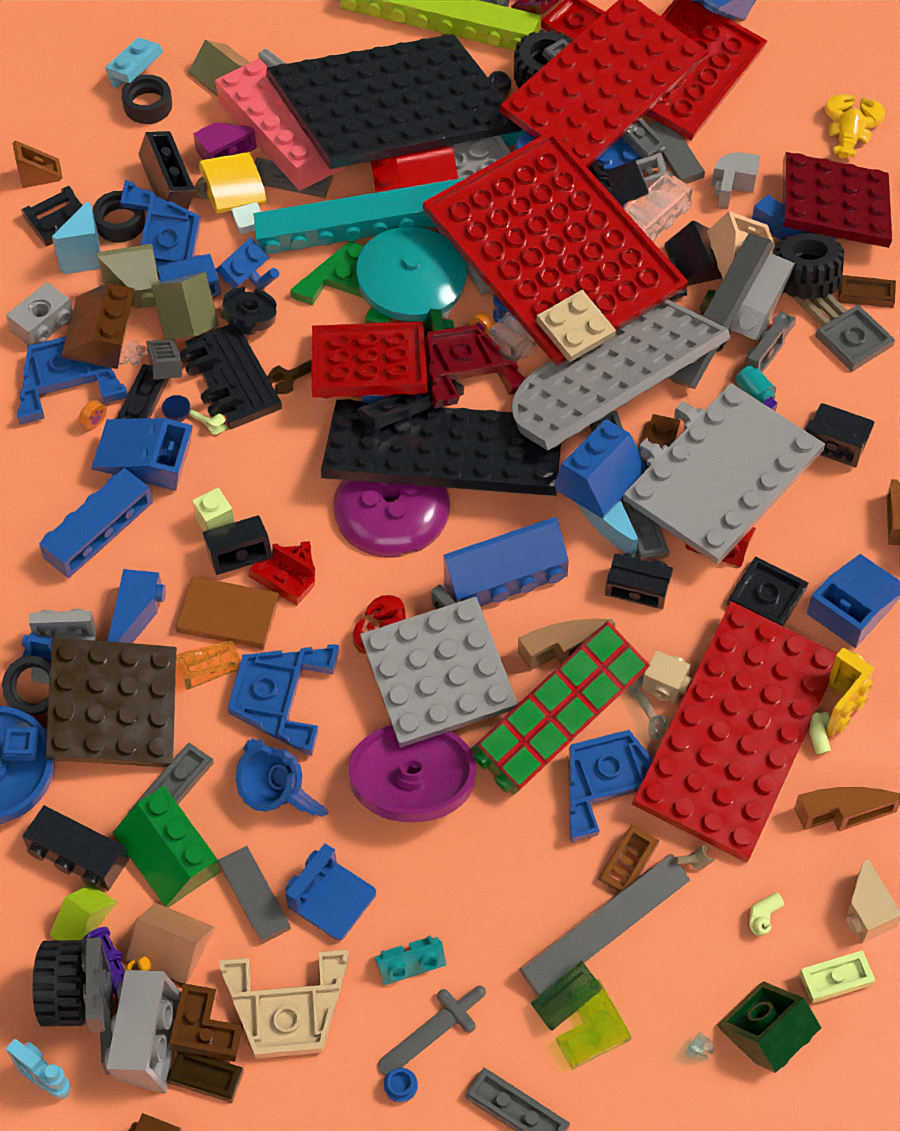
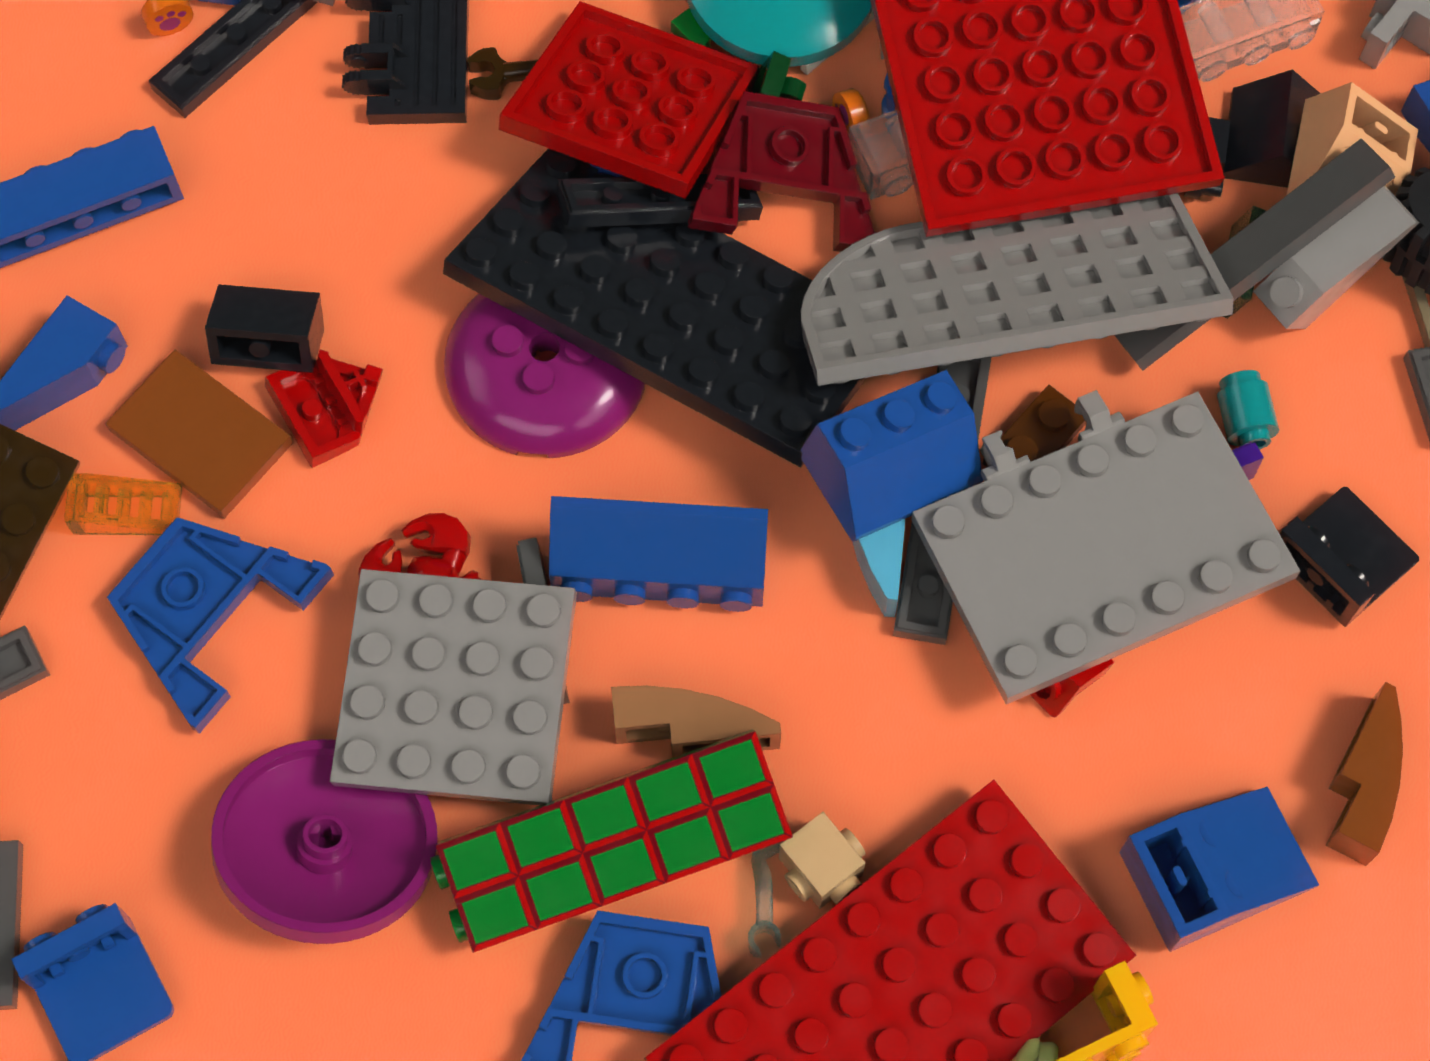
camera: 25 degrees right, 10 degrees up
(146, 447) = (208, 108): blue slope -> none
(176, 408) = (300, 54): clear blue plate -> none
(212, 510) = (258, 255): yellowish green brick -> none
(214, 424) = (346, 106): yellowish green hand -> none
(272, 778) = (104, 751): blue helmet -> none
(575, 325) = (987, 181): tan plate -> none
(639, 580) = (868, 669): black brick -> none
(769, 591) = (1073, 787): black tile -> none
(771, 342) = (1315, 341): dark grey hinge -> none

